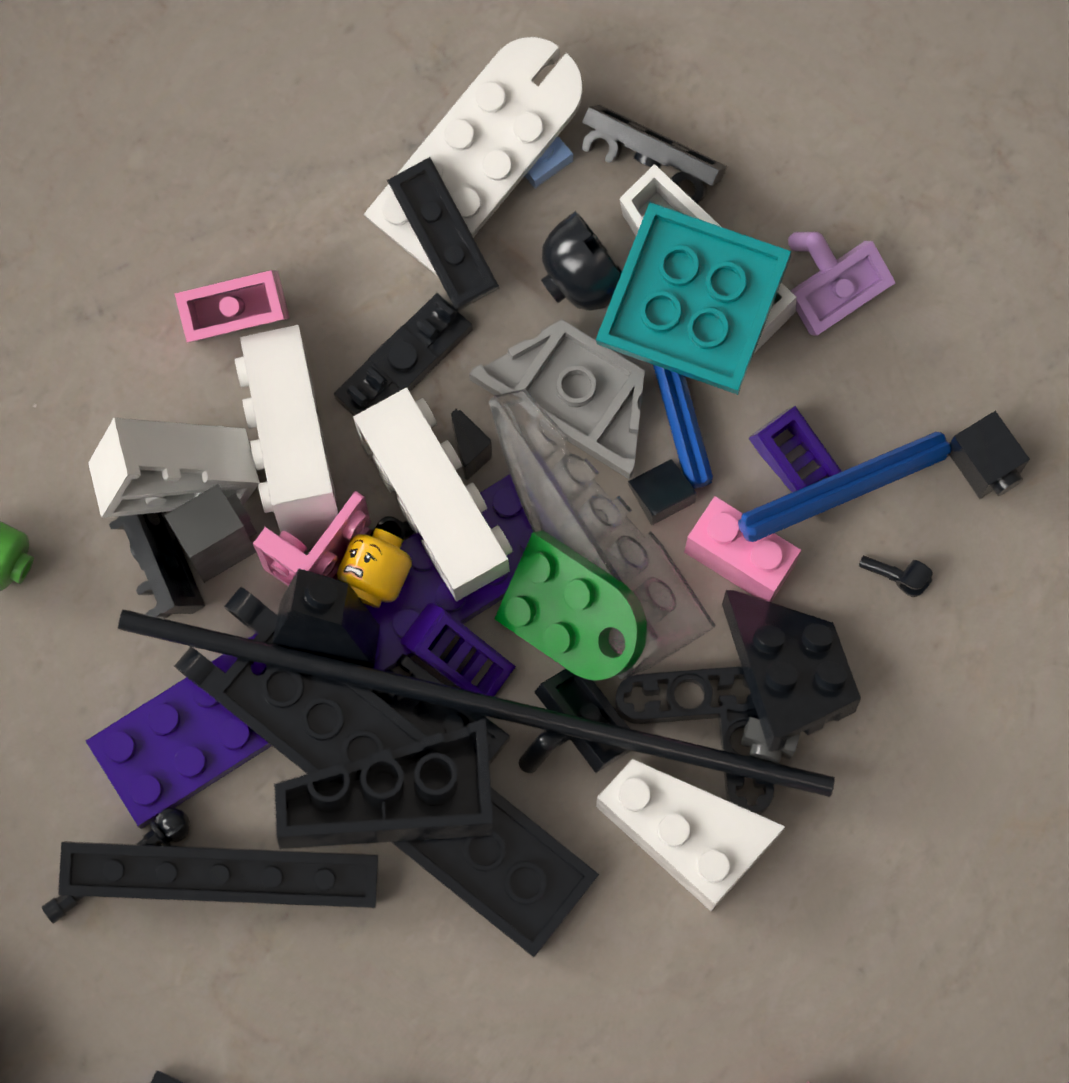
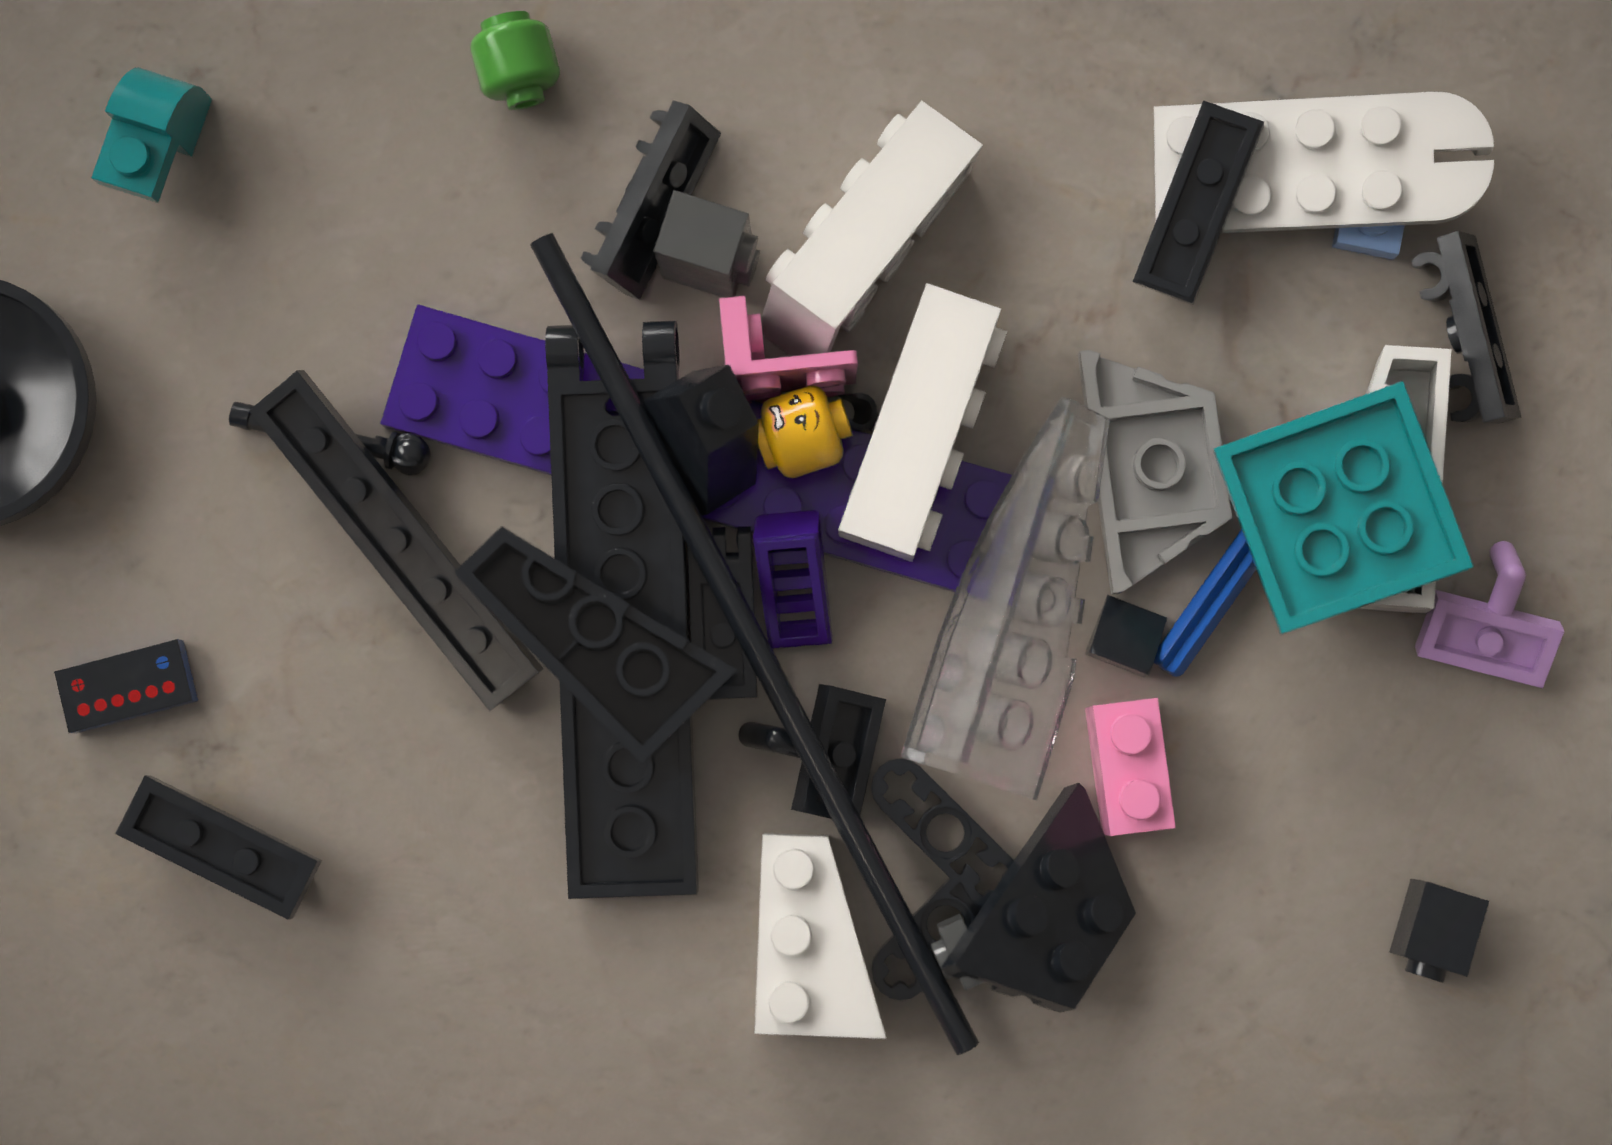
camera: 55 degrees right, 10 degrees up
(166, 464) = (733, 151): white wedge -> none
(232, 306) = (947, 65): bright pink brick -> none
(405, 356) = (1043, 274): black plate -> none
(472, 443) = (1011, 414): black slope -> none
(569, 609) = (926, 655): green plate -> none
(578, 265) = (1284, 363): black cylinder -> none
(802, 435) = (1251, 740): dark purple slope -> none
(843, 486) = (1279, 815): blue axle -> none
(911, 581) = (1244, 954): black hand -> none

